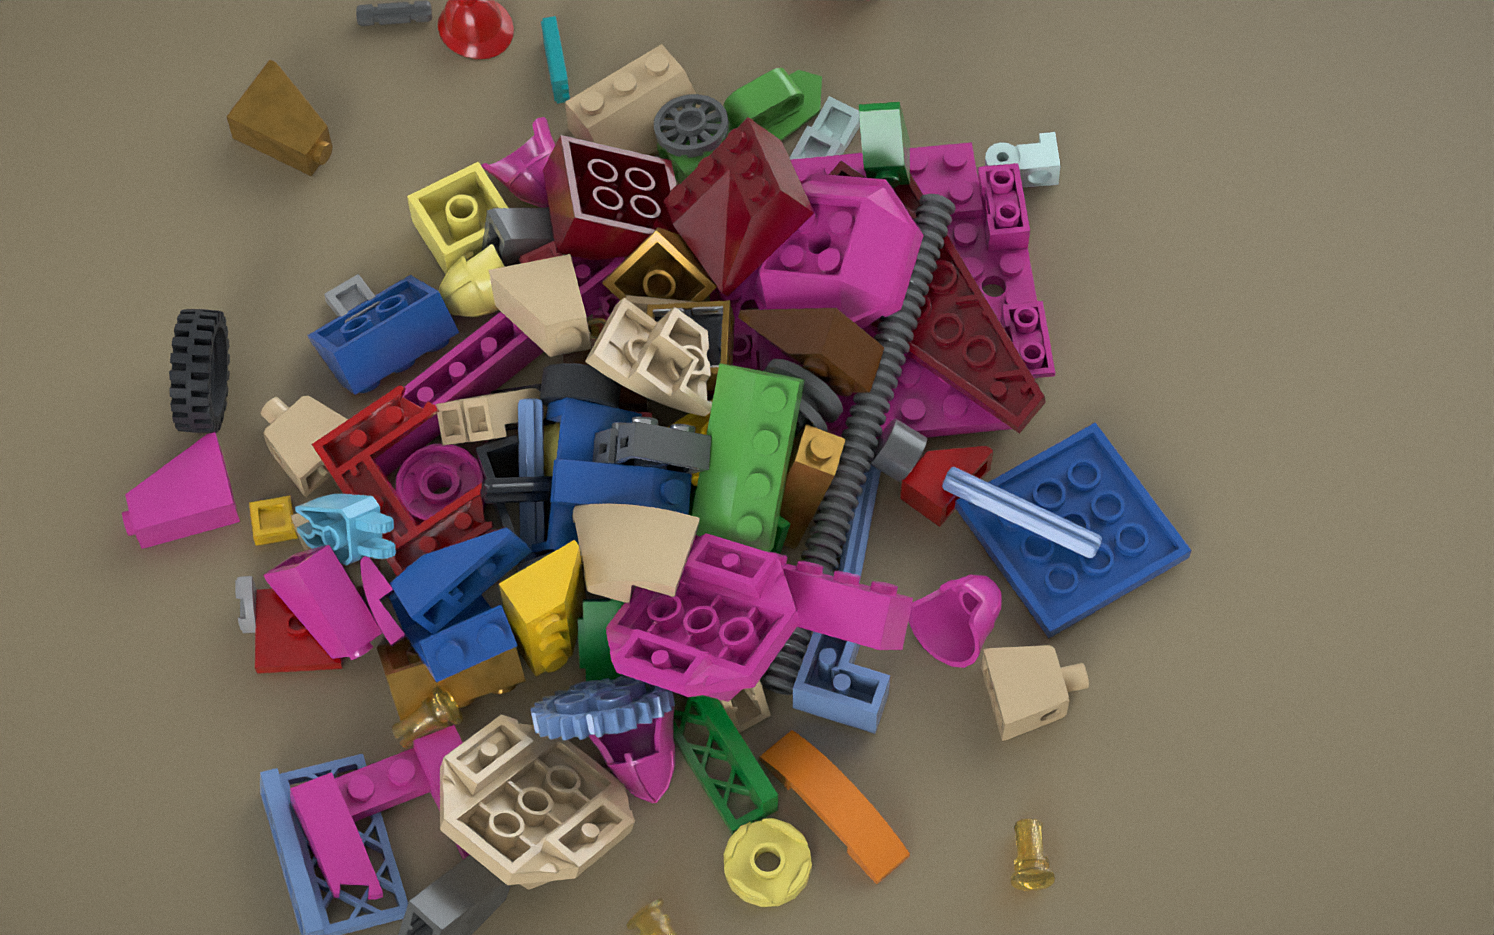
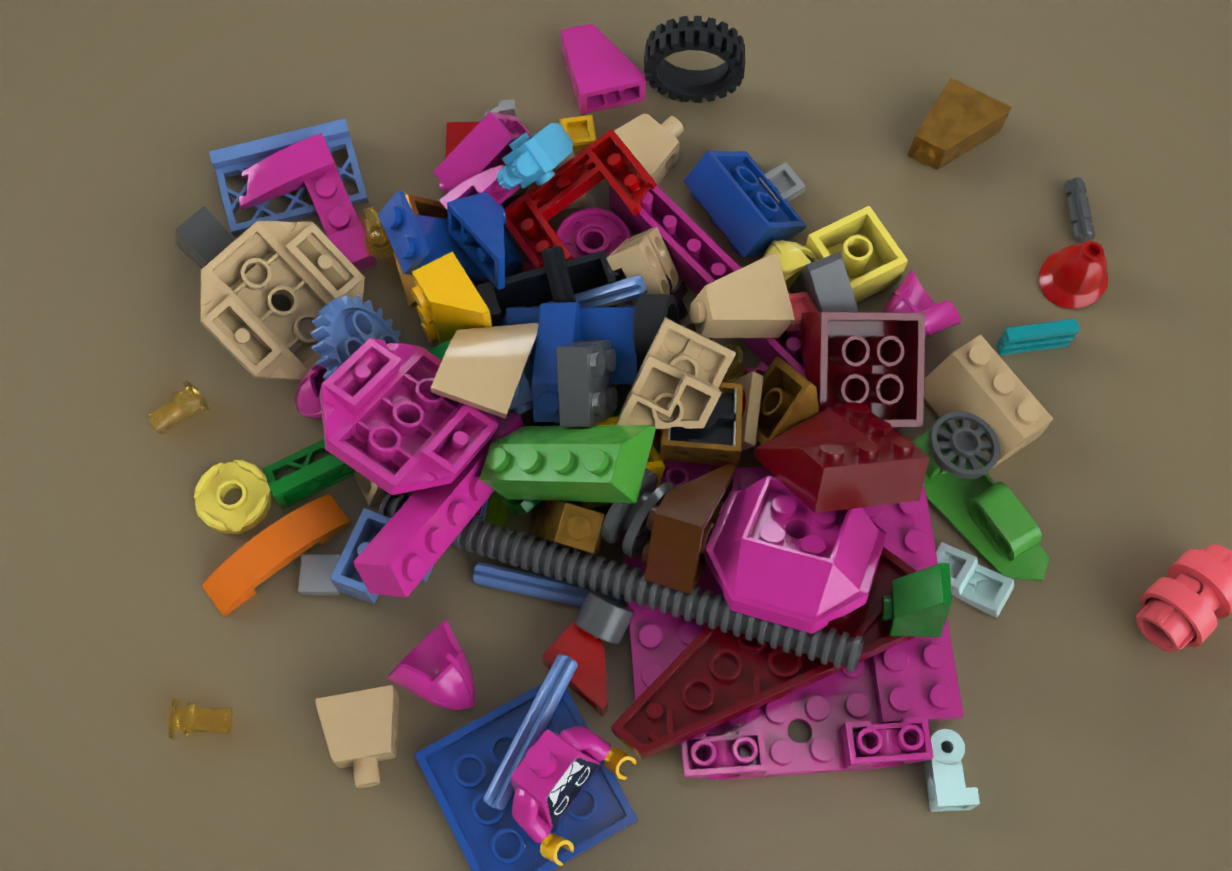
camera: 90 degrees right, 5 degrees up
(857, 753) = (316, 574): none -> light grey tile
(1072, 481) = (552, 779): none -> dark pink torso

